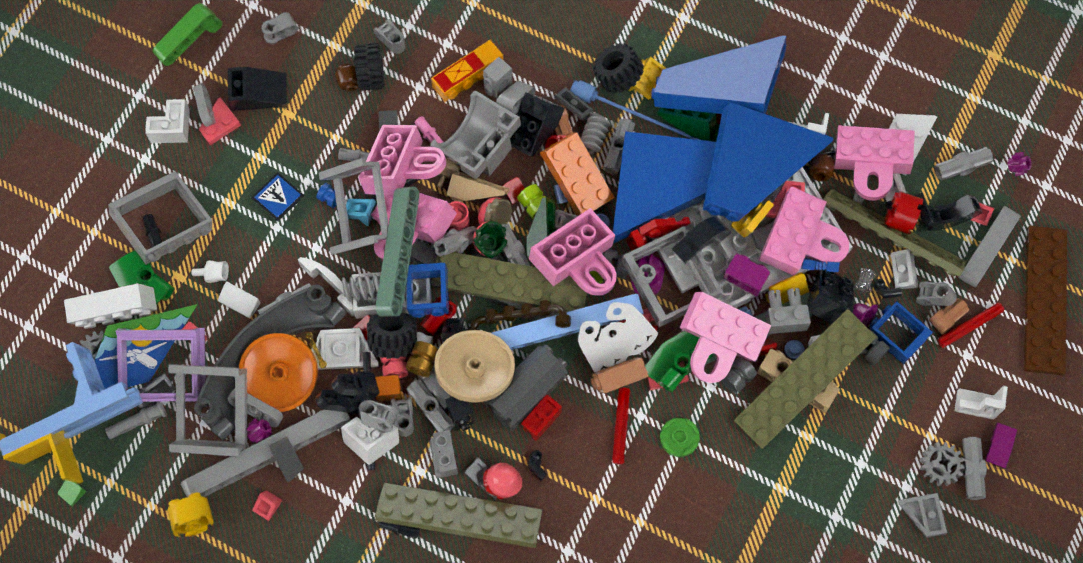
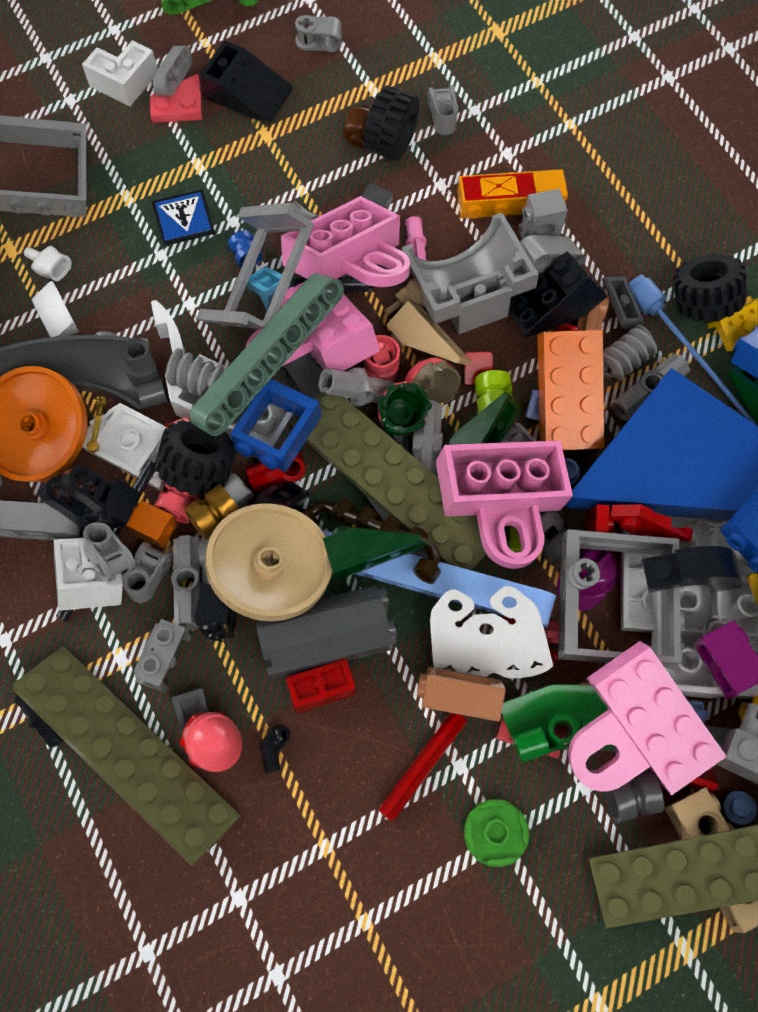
camera: 30 degrees right, 0 degrees up
(152, 230) = (17, 179): black axle -> none
(520, 330) = (360, 549): none -> dark green slope

